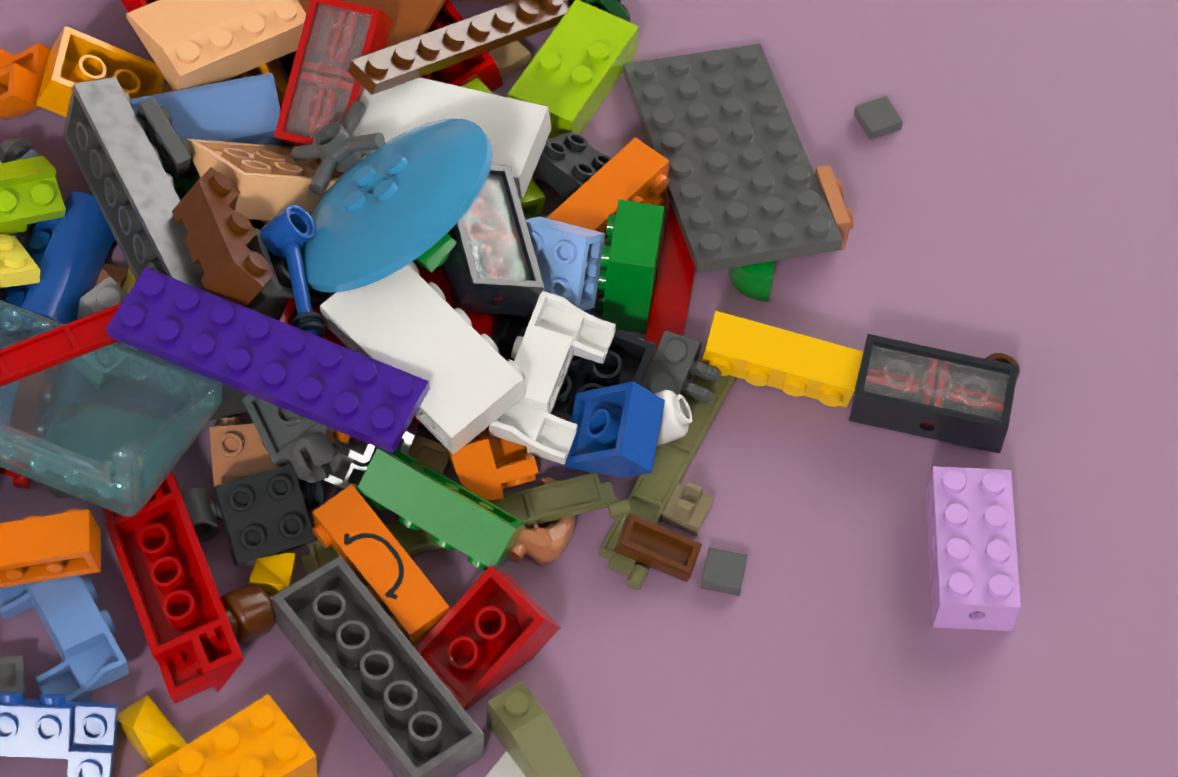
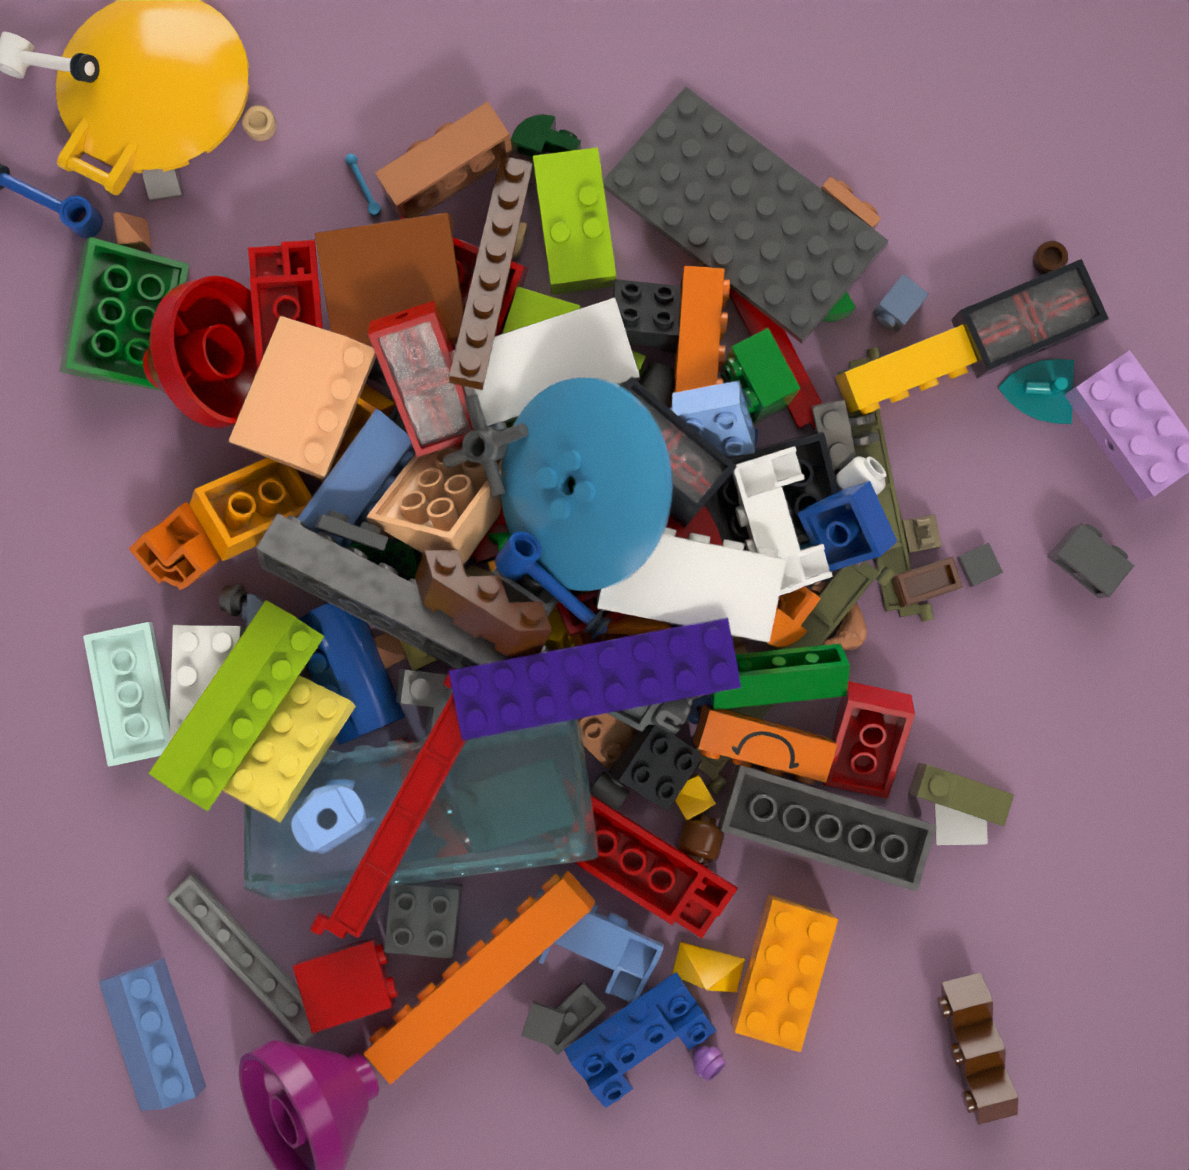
camera: 35 degrees left, 30 degrees up
(820, 311) = (900, 304): none -> sand blue brick
(838, 633) = (1091, 560): none -> dark grey brick
(878, 118) = (816, 90): dark grey tile -> none
(902, 473) = (1040, 390): none -> teal shield

